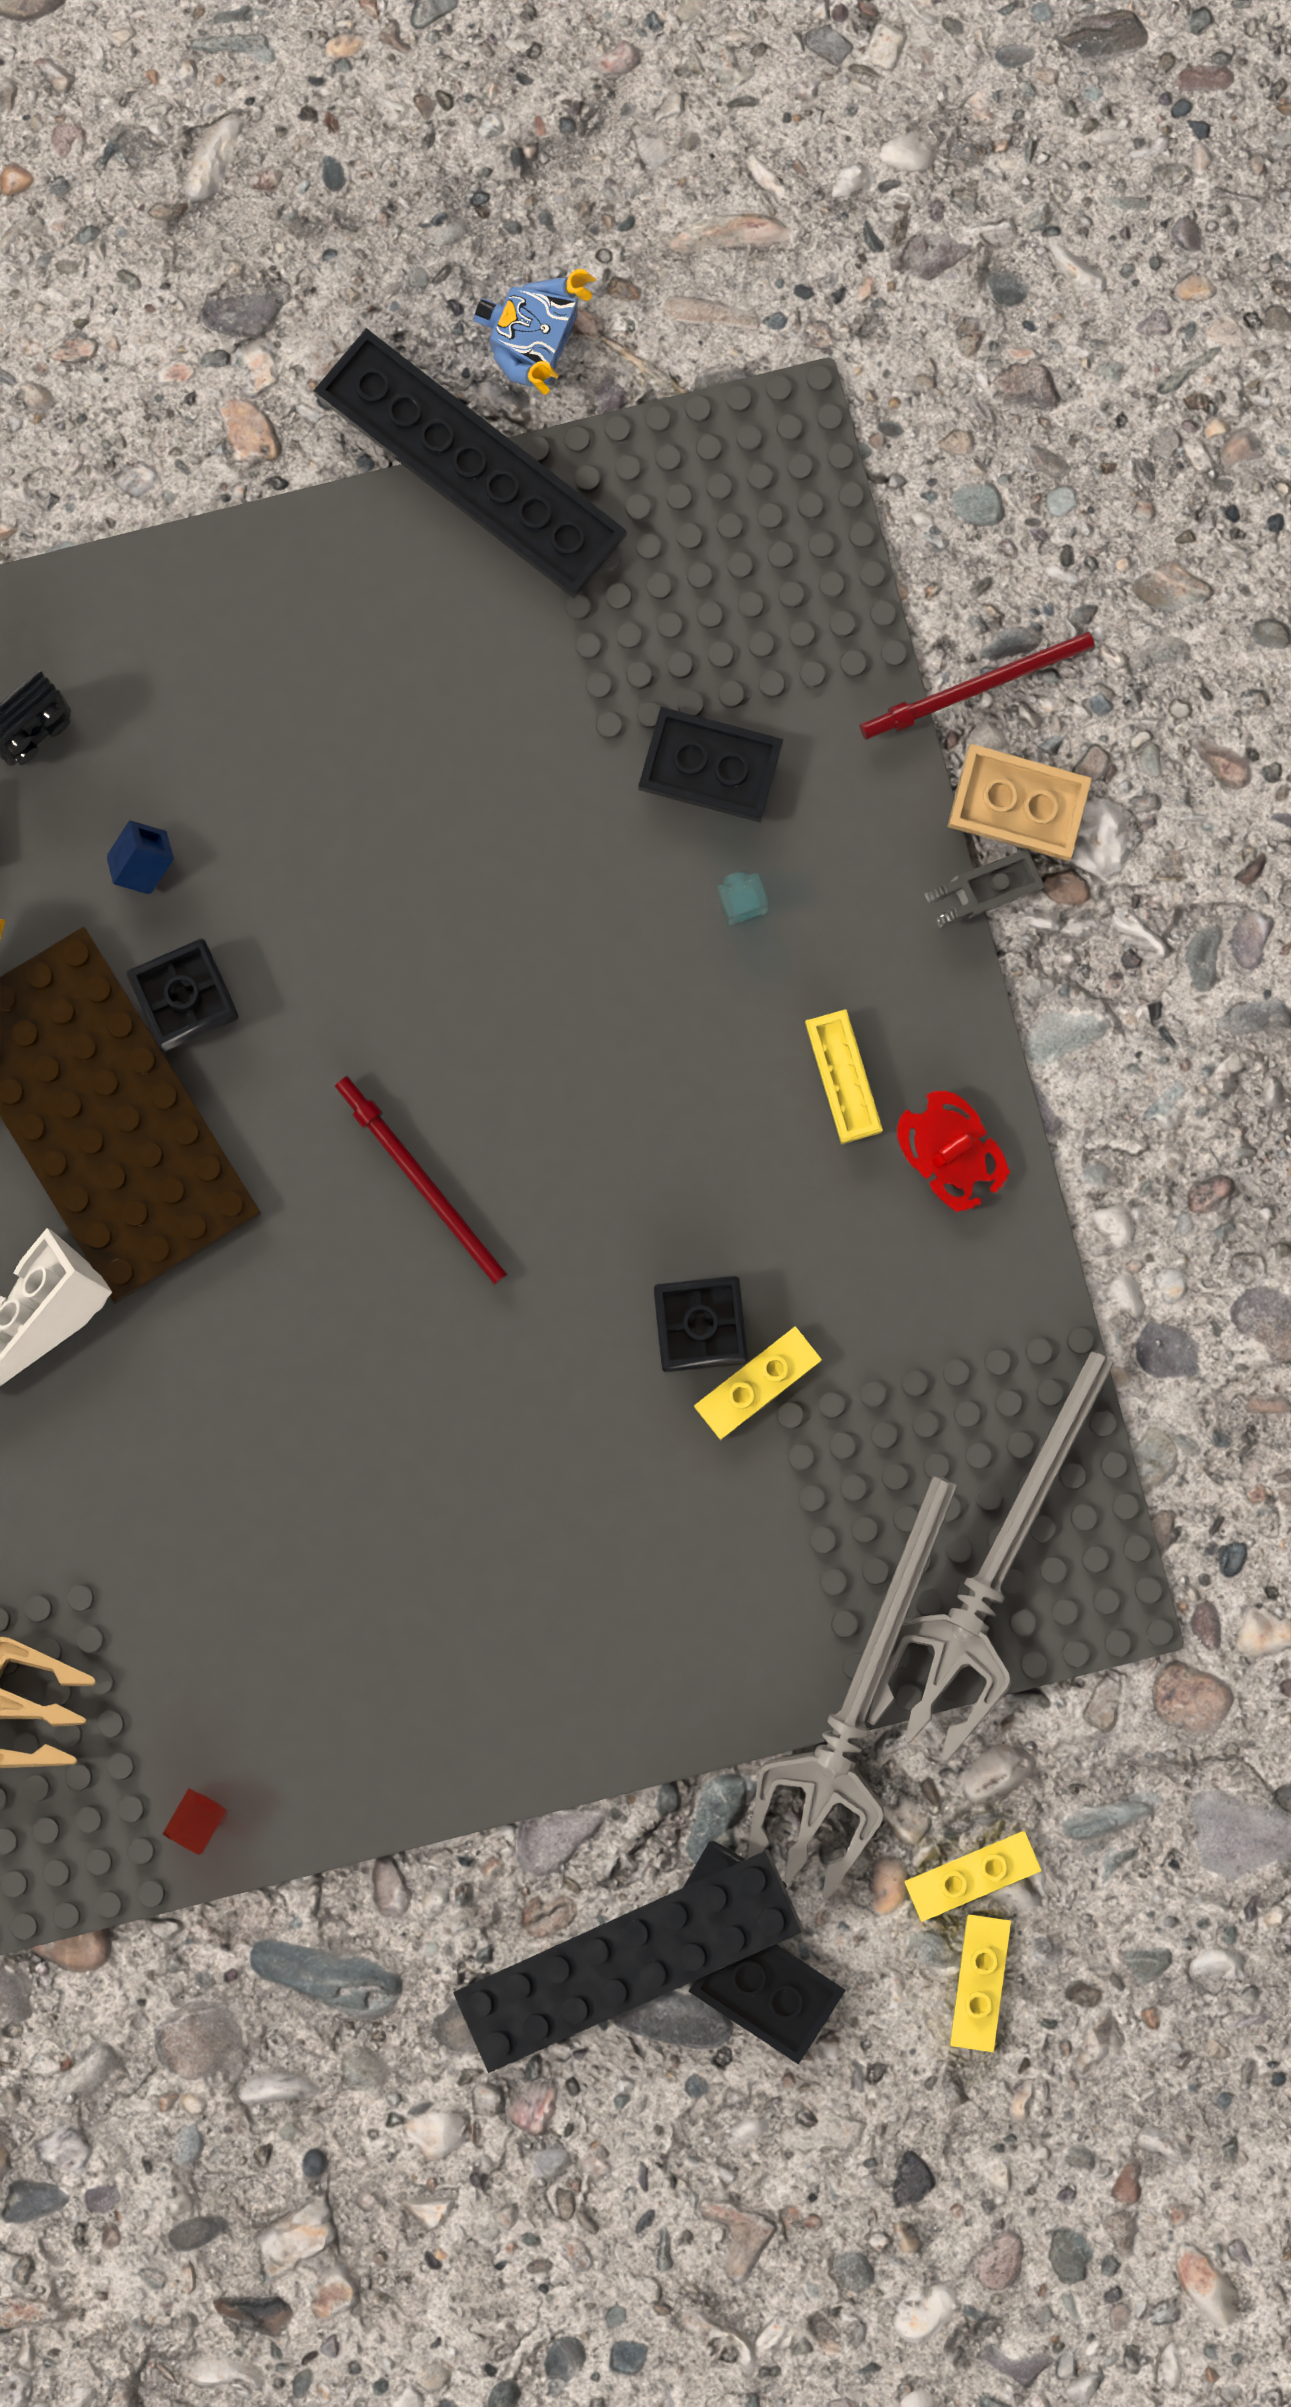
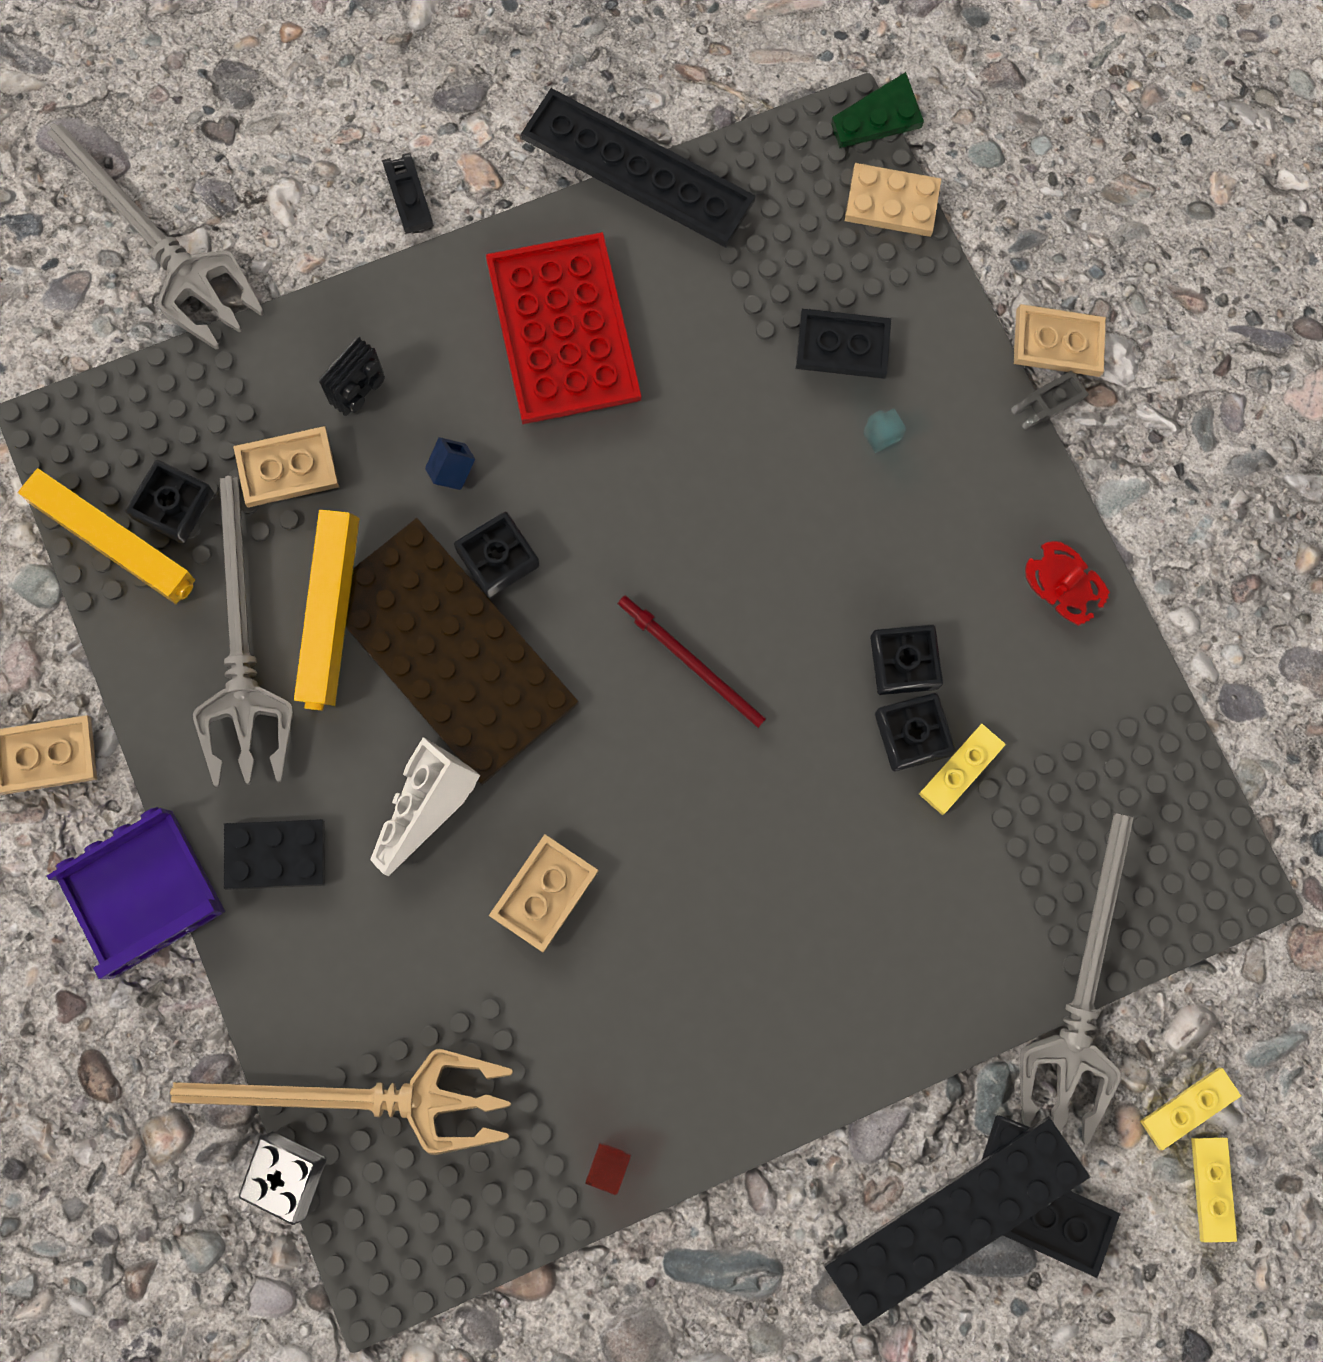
camera: 20 degrees left, 5 degrees down
(143, 452) = (408, 194): none -> black plate
(172, 1459) = (543, 893): none -> tan plate
(325, 684) = (563, 328): none -> red plate
(534, 327) = (665, 74): medium blue torso -> none
(689, 1203) = (918, 644): none -> black brick
(823, 560) = (893, 199): none -> tan plate
(830, 428) = (879, 115): none -> dark green wing
(843, 1076) = (979, 542): light yellow plate -> none
(904, 714) = (970, 292): dark red bar -> none
(961, 1635) = (1149, 928): light grey piece -> none

